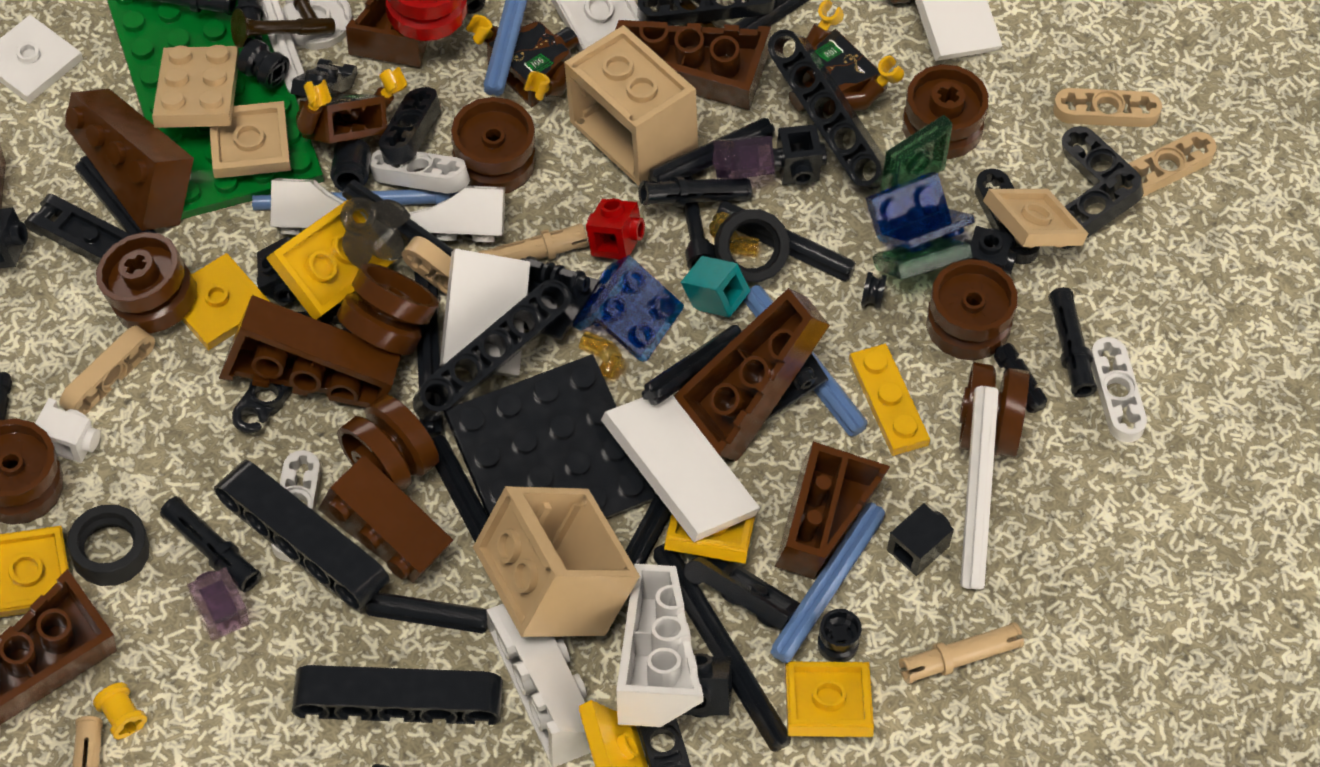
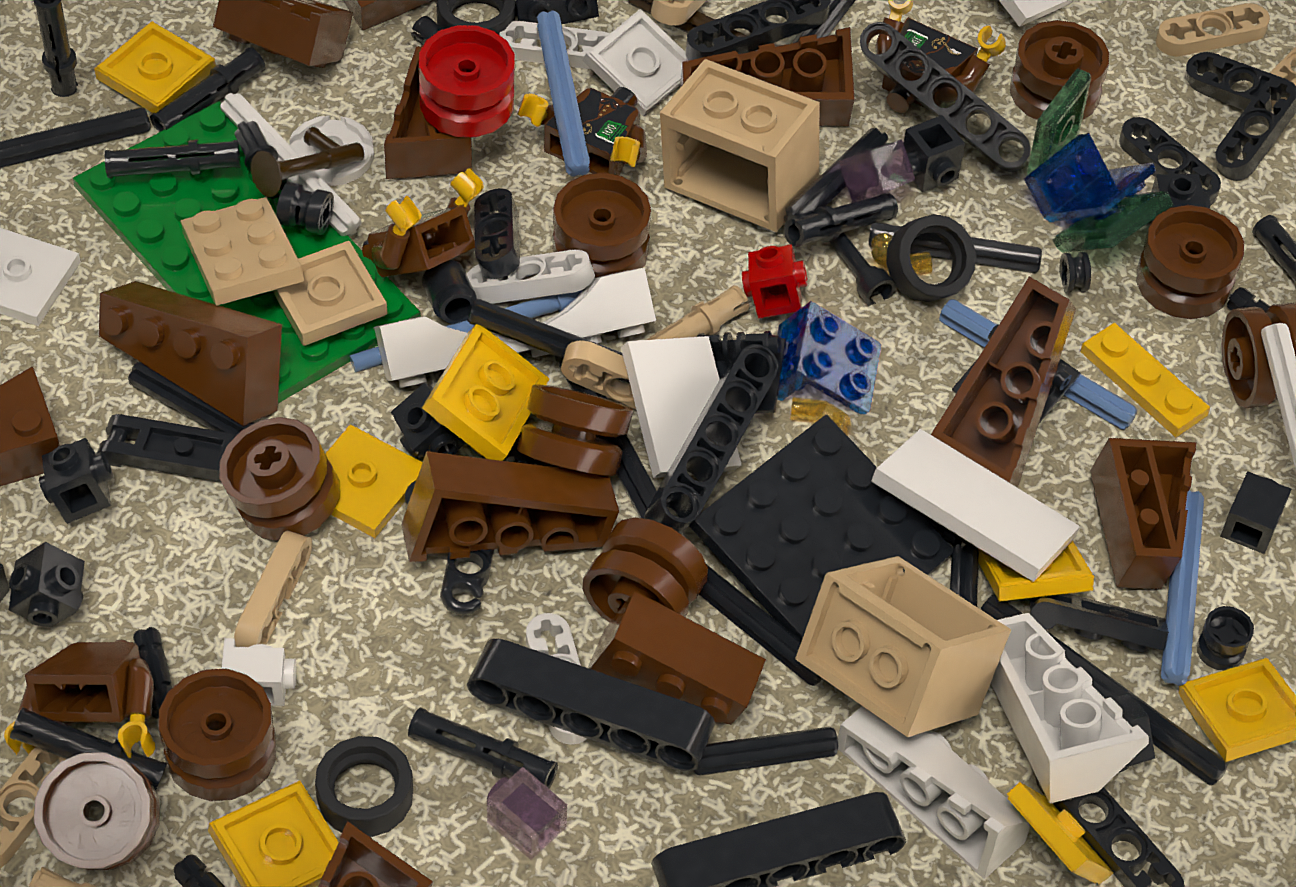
camera: 20 degrees left, 5 degrees down
(337, 78) = (374, 204): black plate -> none
(375, 236) = (526, 351): clear smoke plate -> none
(684, 370) = (934, 397): black axle -> none
(715, 286) = (911, 311): teal brick -> none
(1035, 217) = (1211, 151): tan plate -> none

